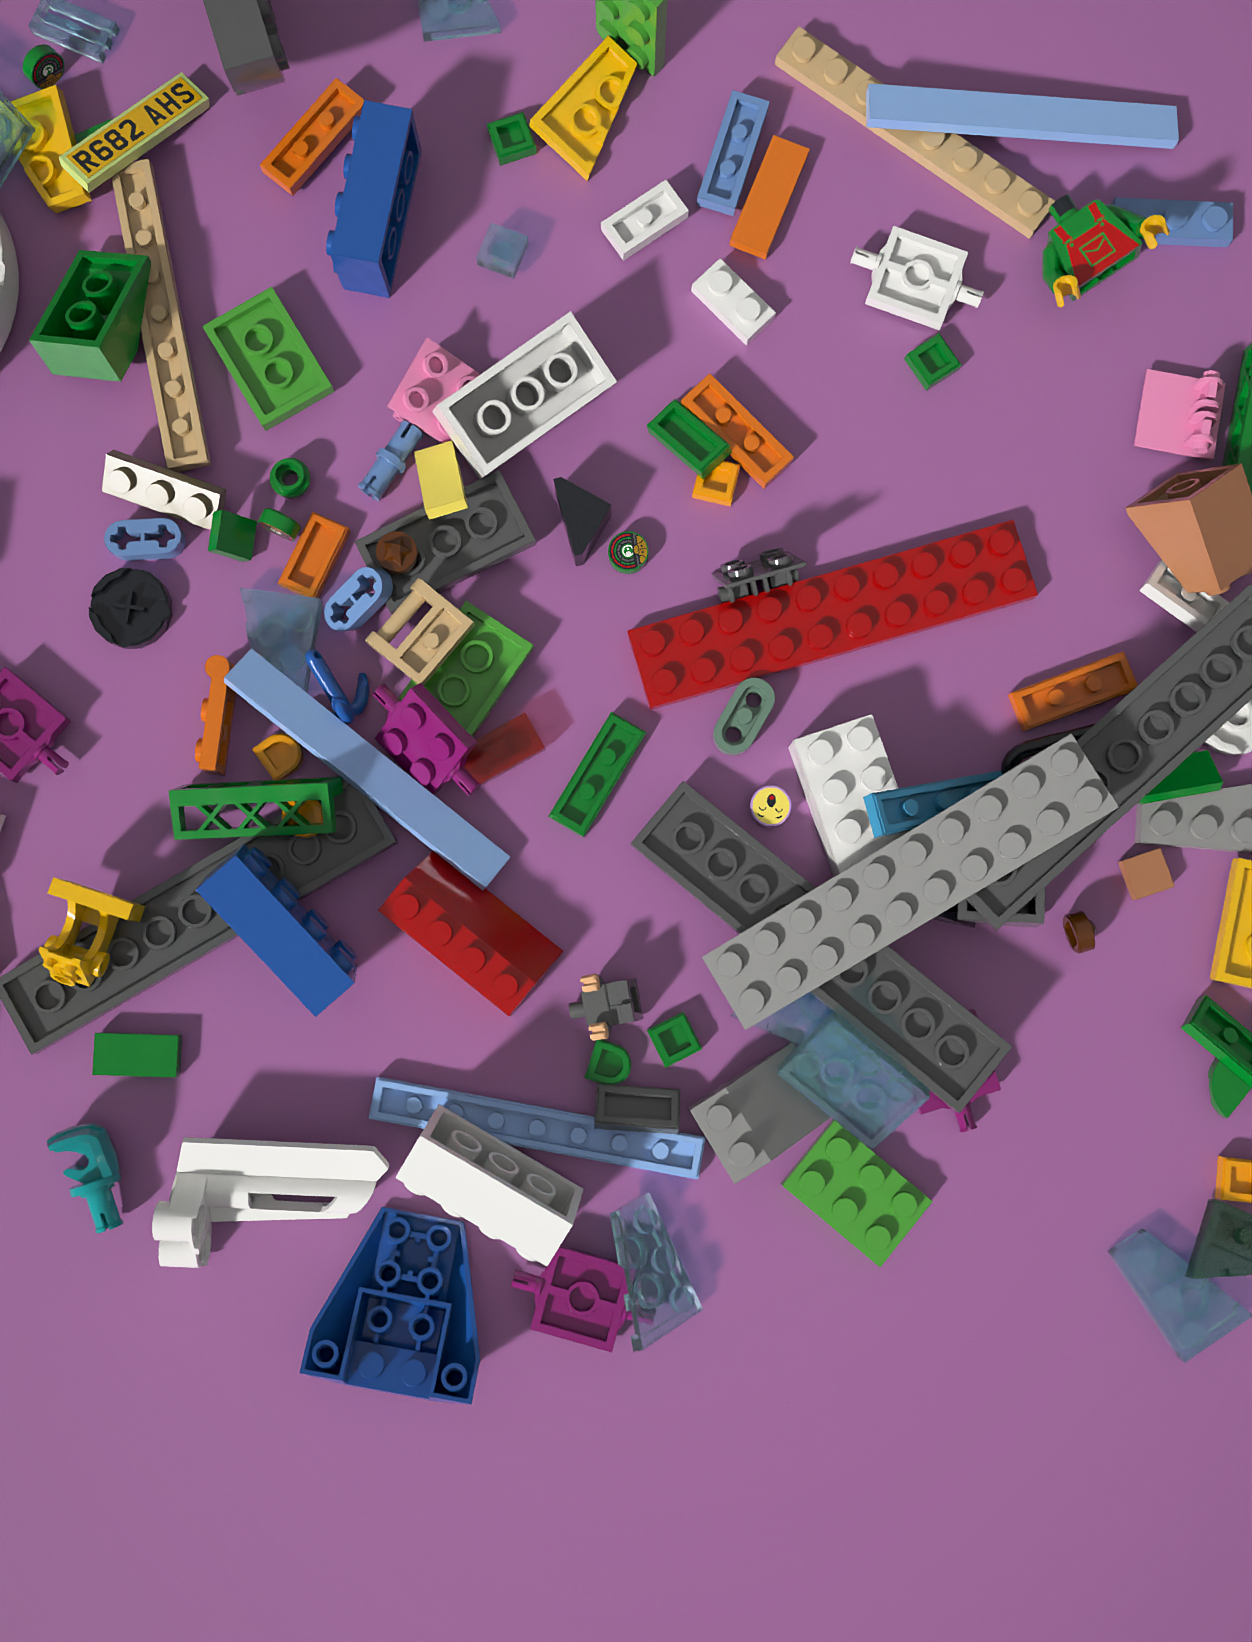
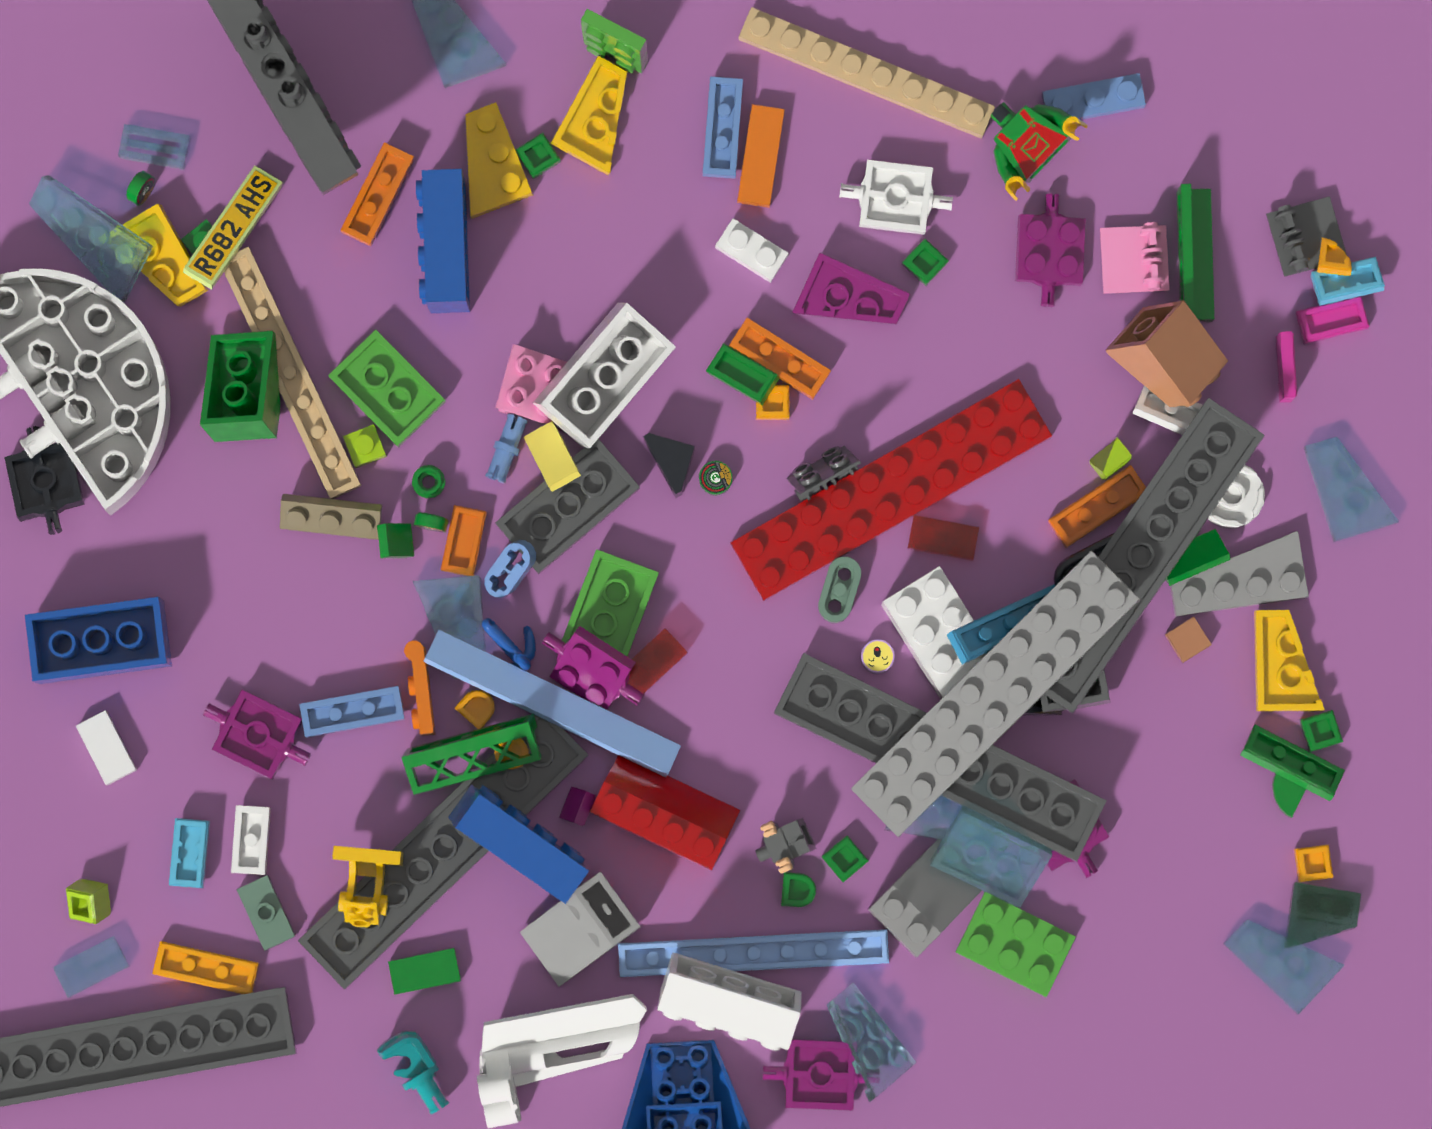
camera: 10 degrees left, 0 degrees up
(129, 724) = (352, 711): none -> medium blue plate
(130, 608) = (326, 617): black tile -> none
(144, 530) = (322, 551): medium blue beam -> none
(226, 420) = (364, 446): none -> lime plate
(336, 1049) = (581, 930): none -> light grey slope
(368, 900) = (577, 806): none -> magenta tile
(397, 552) = (533, 524): reddish brown tile -> none
(429, 641) = (577, 590): tan plate -> none
(456, 137) = (492, 163): none -> yellow wing
(502, 250) = (554, 253): clear light blue plate -> none
(597, 774) = (733, 663): green tile -> none
(637, 1109) = (828, 919): dark grey tile -> none
(644, 220) = (664, 200): white plate -> none
(836, 376) = (849, 294): none -> magenta wing
(880, 685) = (943, 538): none -> clear red plate
(1021, 116) = (951, 43): light blue tile -> none
(1079, 931) = (1144, 698): reddish brown tile -> none
(1083, 380) = (1050, 250): none -> magenta plate
(1102, 638) = (1110, 459): none -> lime slope

